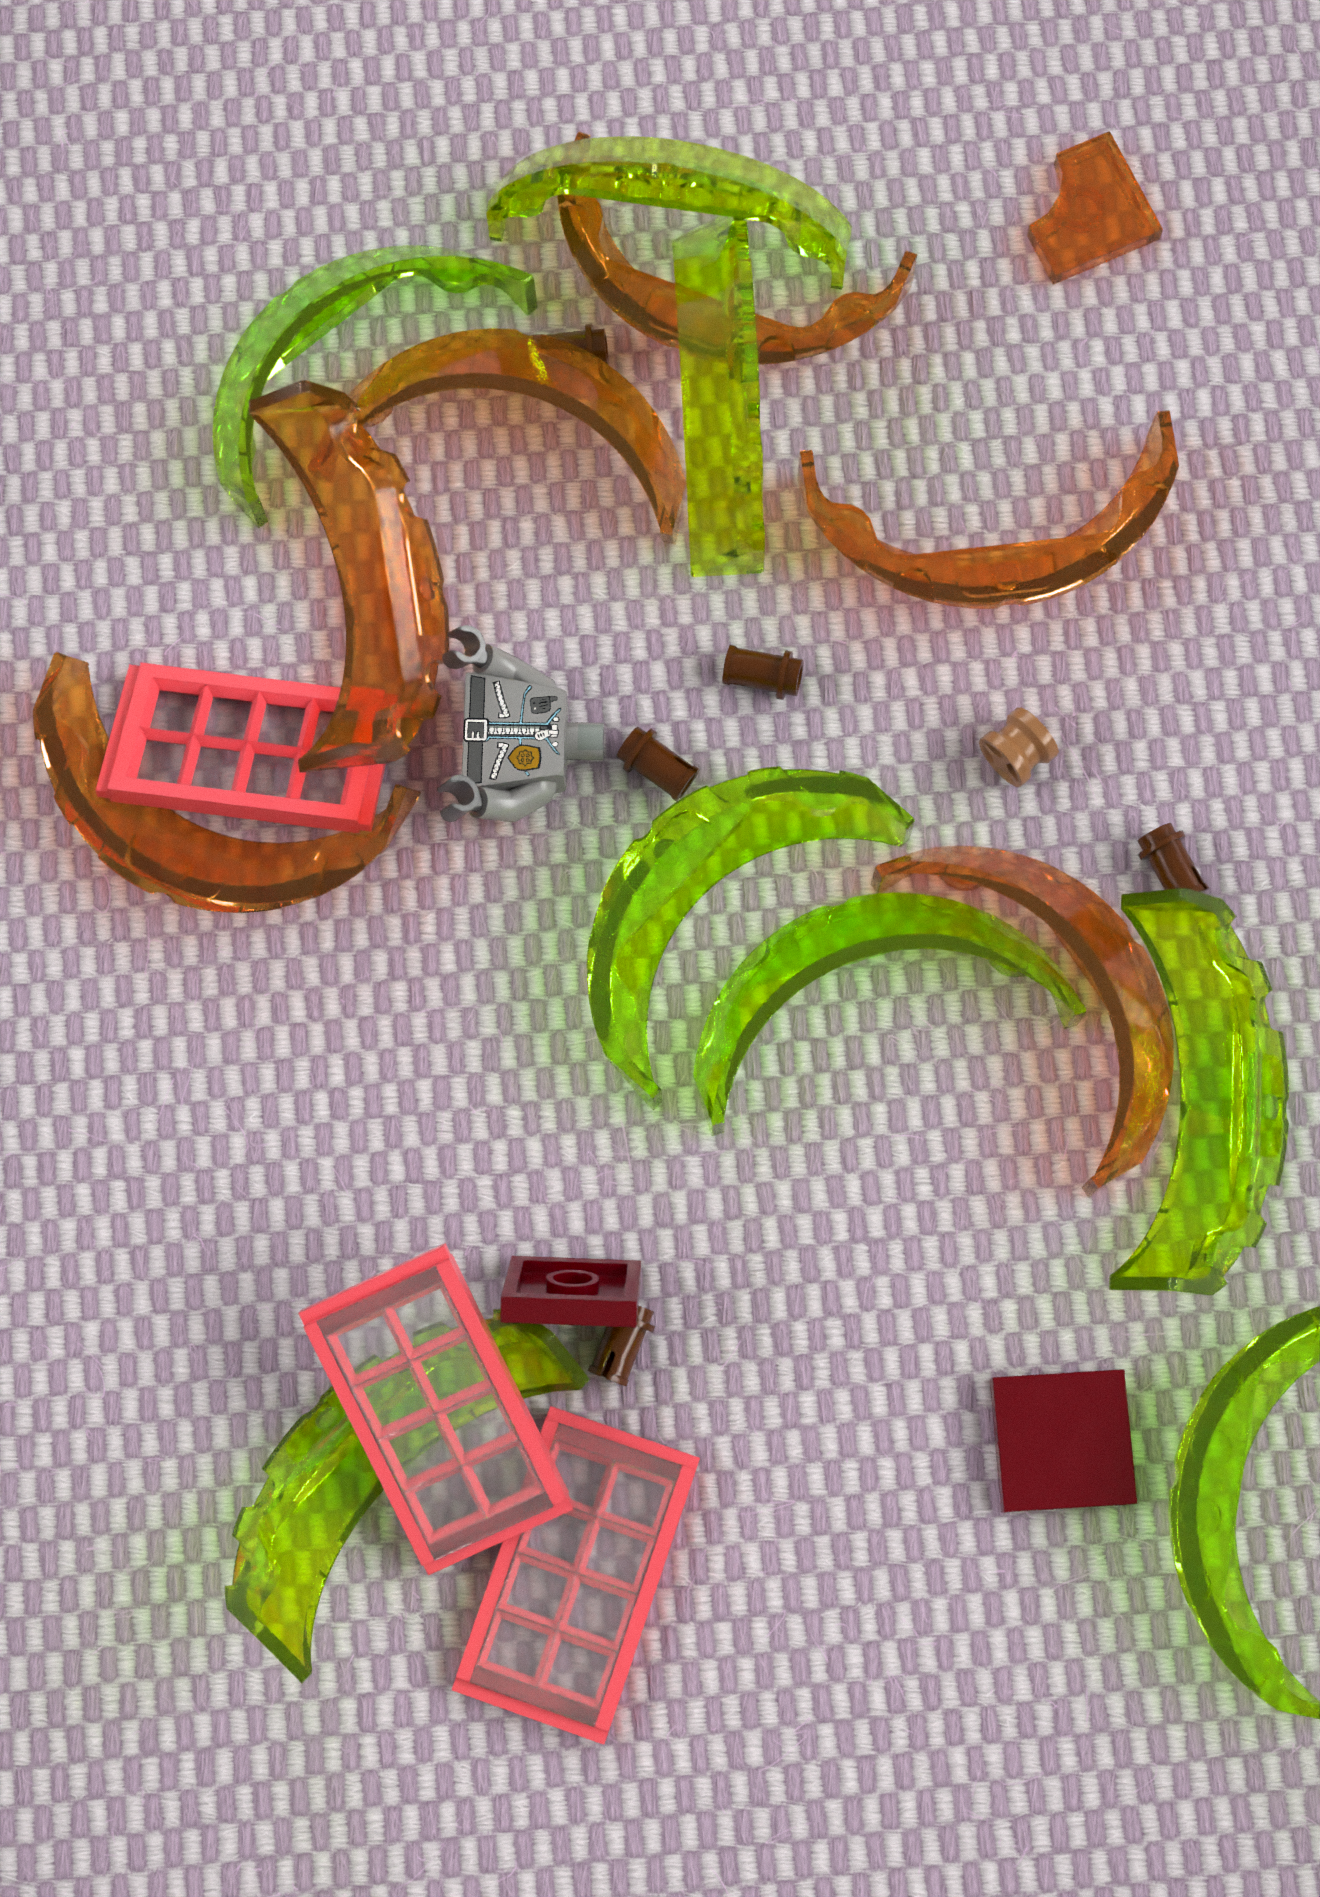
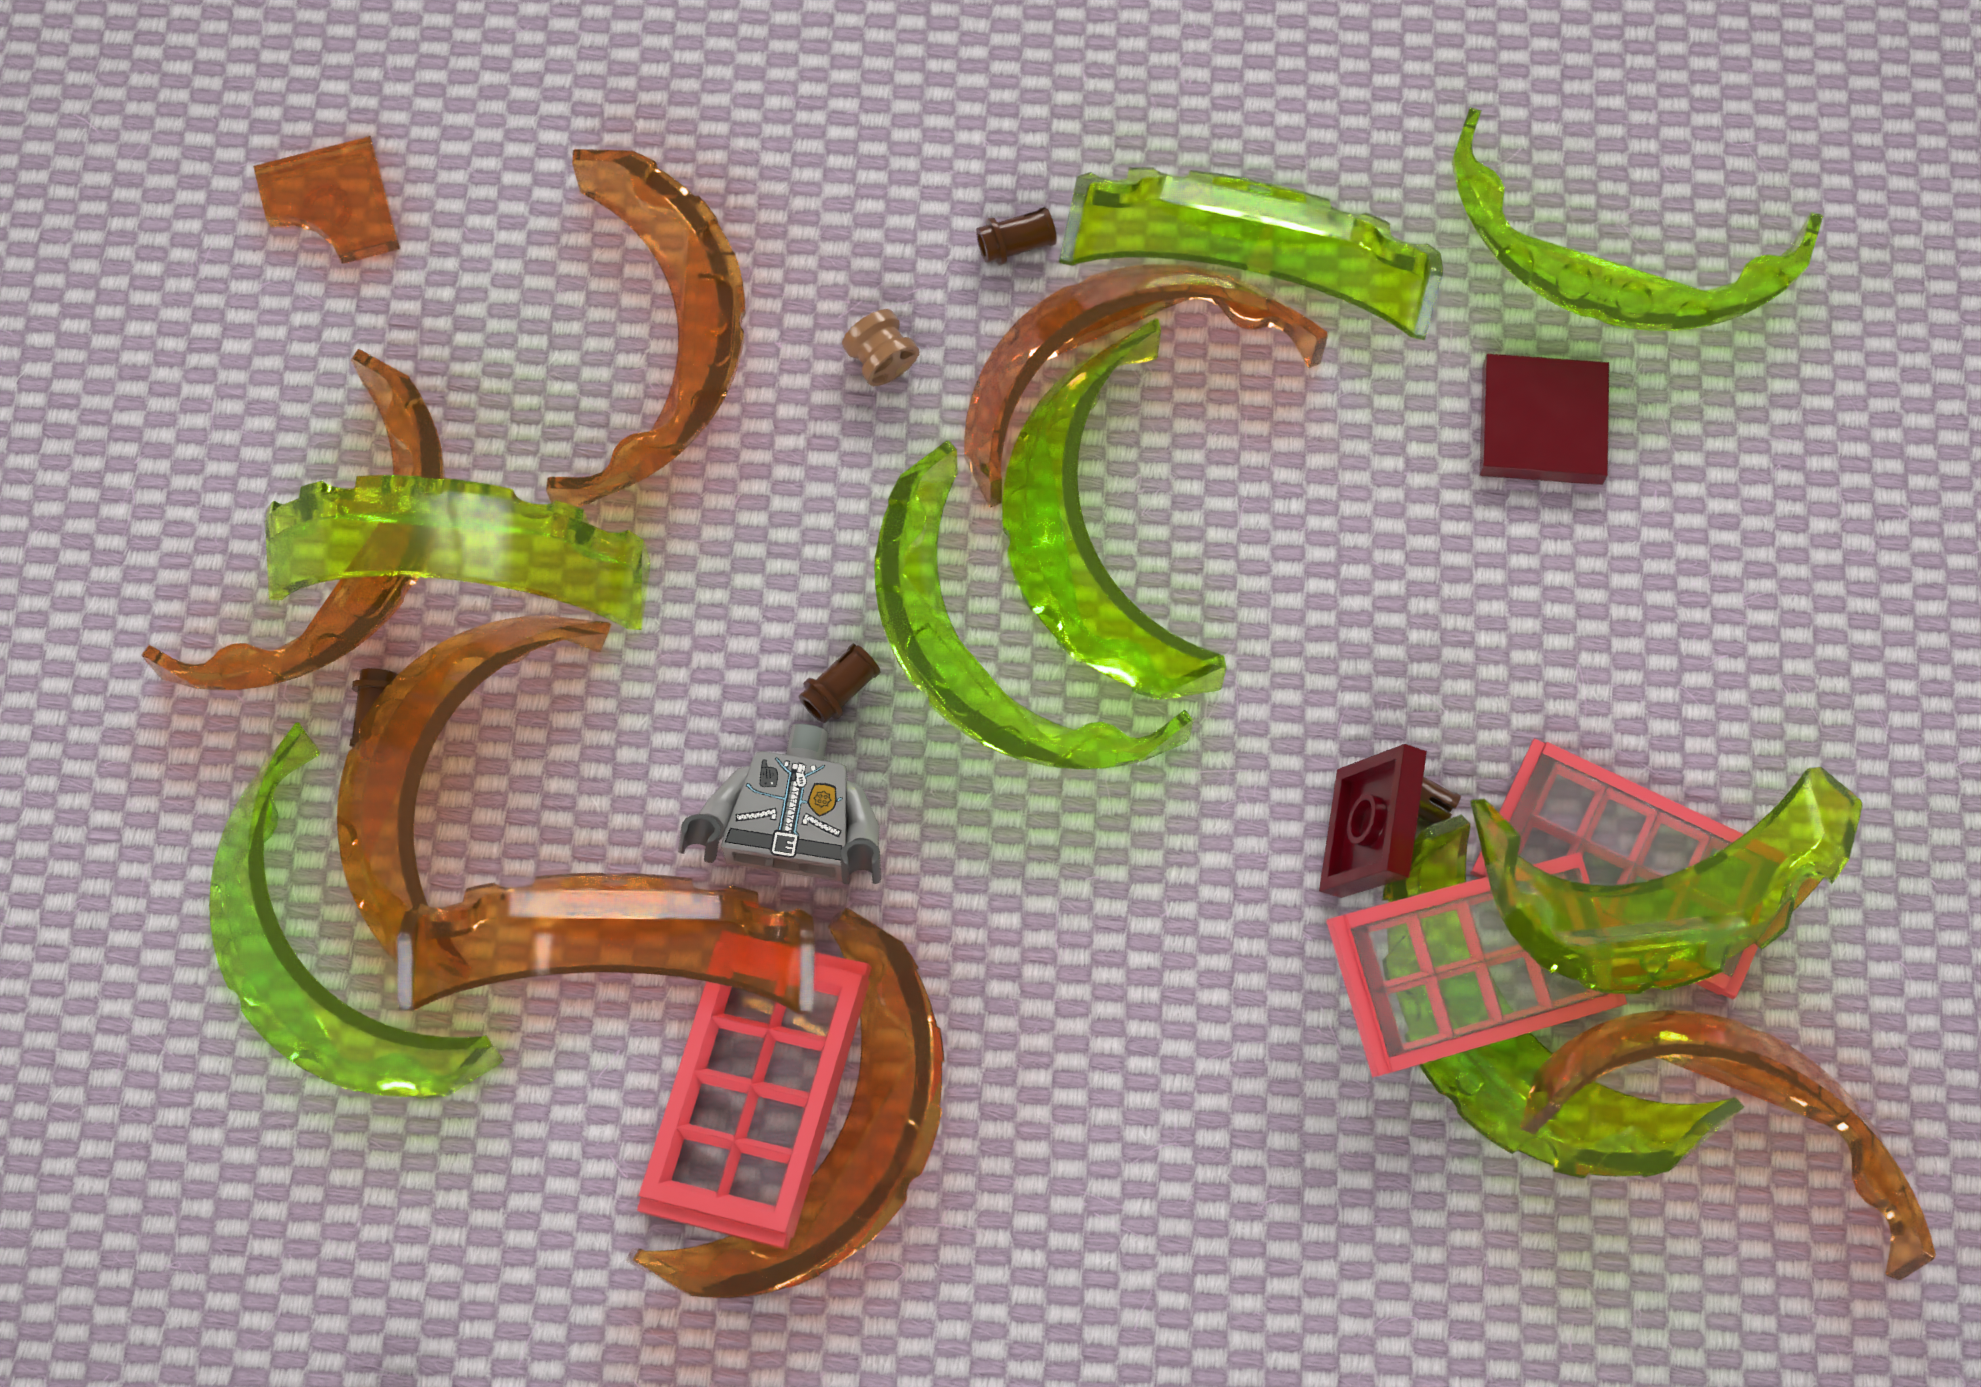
camera: 85 degrees left, 5 degrees down
(384, 1697) = (1756, 1066): none -> clear orange windscreen
(503, 1600) = (1682, 923): none -> clear neon green windscreen
(679, 178) = (220, 585): clear neon green windscreen -> none
(763, 671) = (760, 569): reddish brown pin -> none

